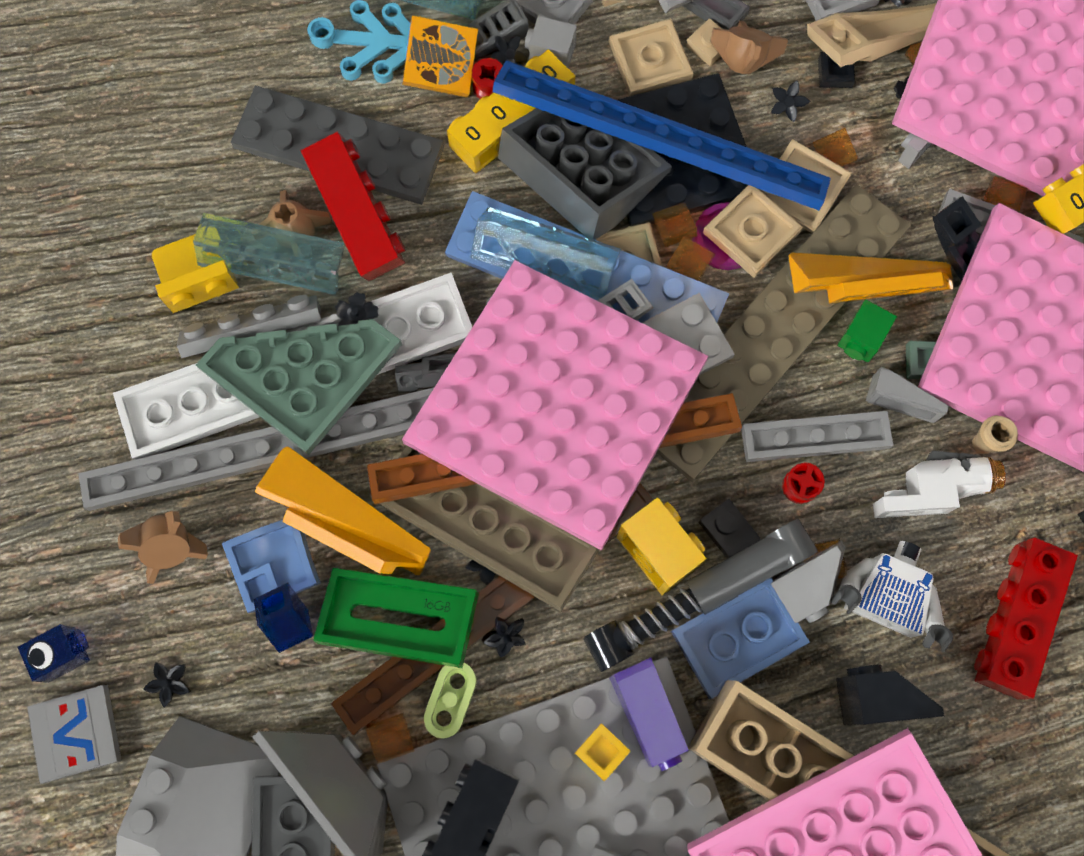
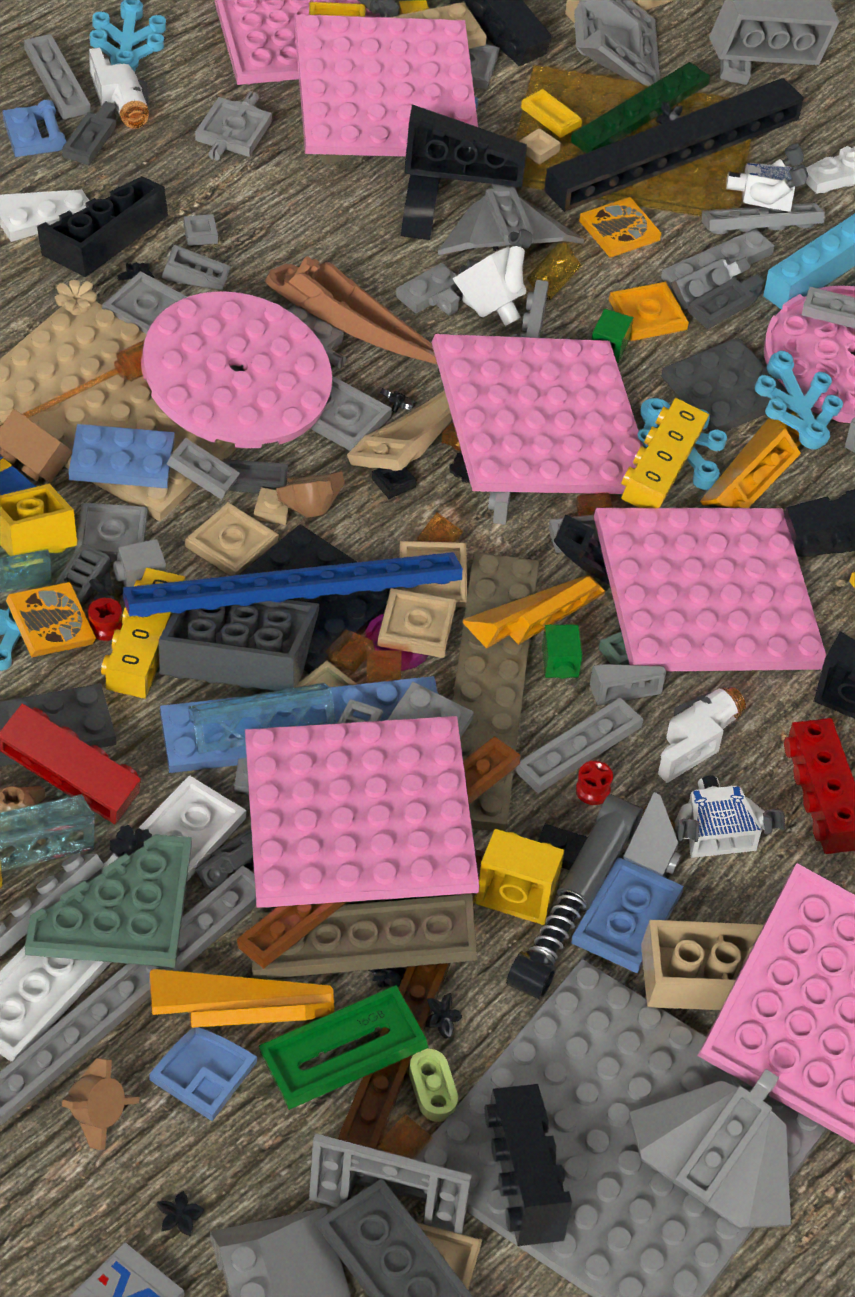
camera: 40 degrees left, 25 degrees down
(54, 653) = (62, 1240): clear blue brick -> none
(283, 617) = (249, 1095): clear blue brick -> none
(602, 752) = (585, 1040): yellow plate -> none
(650, 714) = (598, 985): slope -> none
(789, 100) = (373, 518): black plant -> none
(882, 697) = (758, 882): black slope -> none
(995, 435) = (712, 670): tan cone -> none

